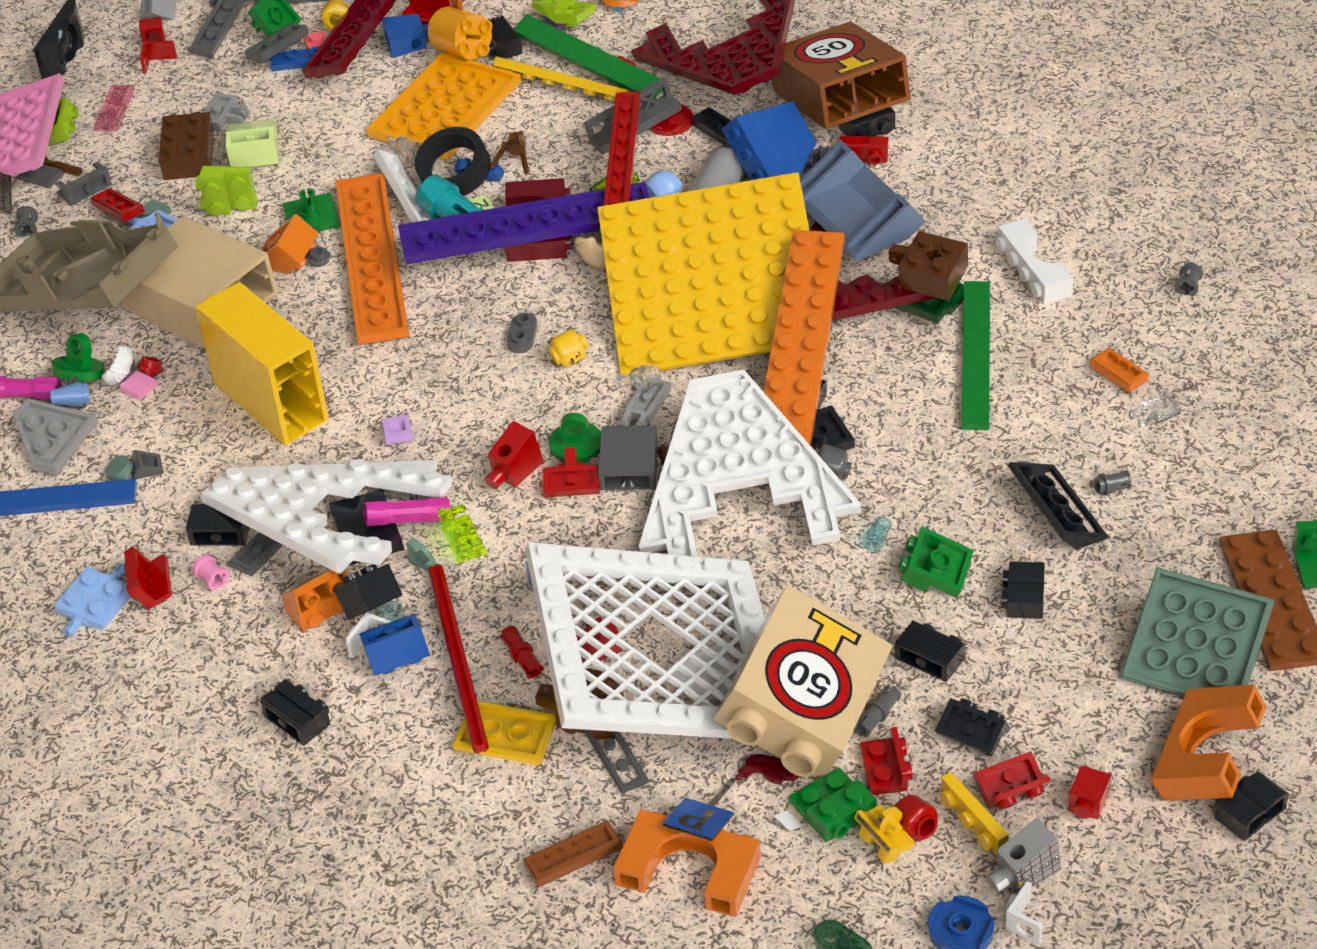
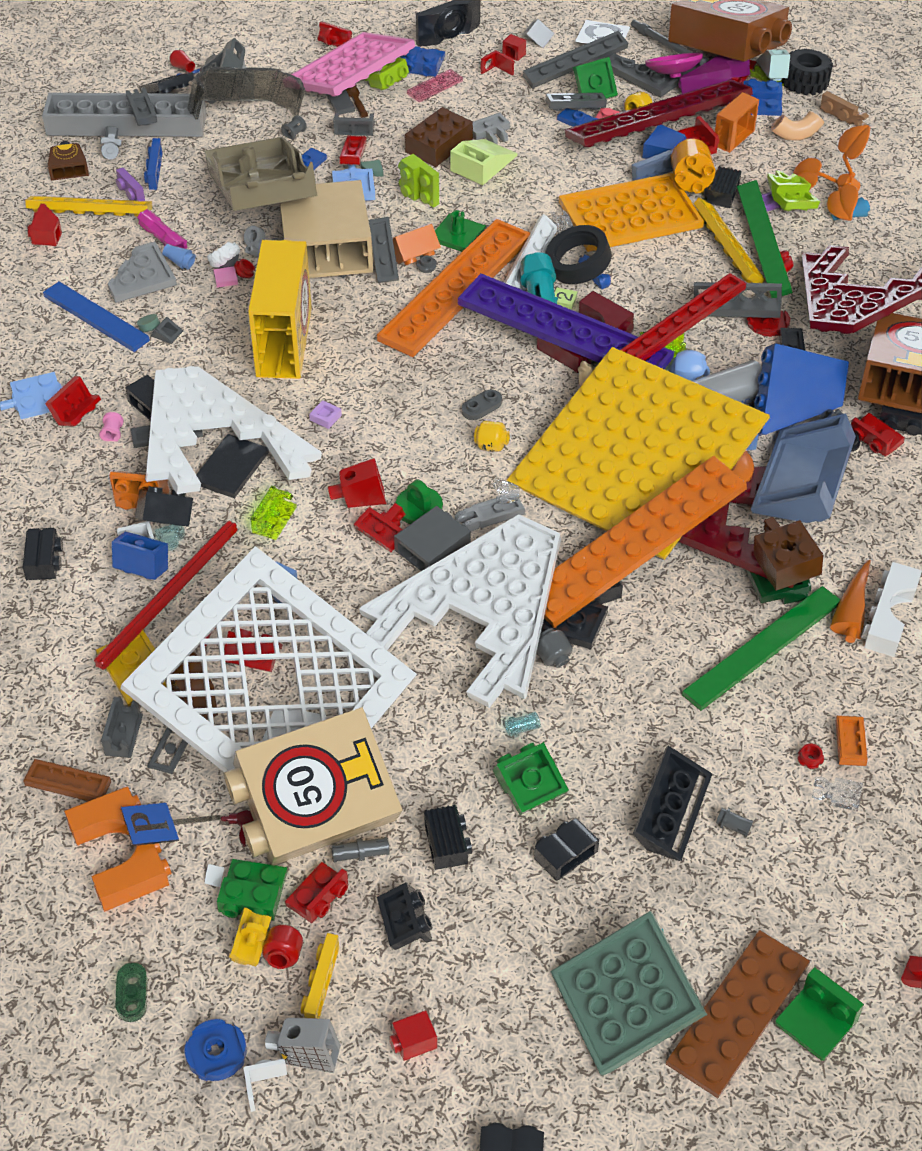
camera: 40 degrees right, 5 degrees up
(78, 361) = (203, 239): green tile -> none
(82, 91) = (424, 61): none -> blue plate
(131, 339) = (253, 237): none -> light grey plate
(286, 276) = (383, 250): none -> dark grey plate
(386, 512) = (242, 464): dark pink axle -> none
(418, 56) = (652, 166): none -> sand blue plate
(419, 554) = (232, 507): sand green tile -> none
(514, 145) = (636, 270): reddish brown plant -> none
(564, 782) = (121, 729): none -> dark grey hinge
(1004, 280) = (850, 612): none -> orange piece
(1011, 780) = (377, 978): red bracket -> none
(1105, 400) = (811, 750): none -> red plate
(1200, 715) = (557, 1052): orange arch -> none

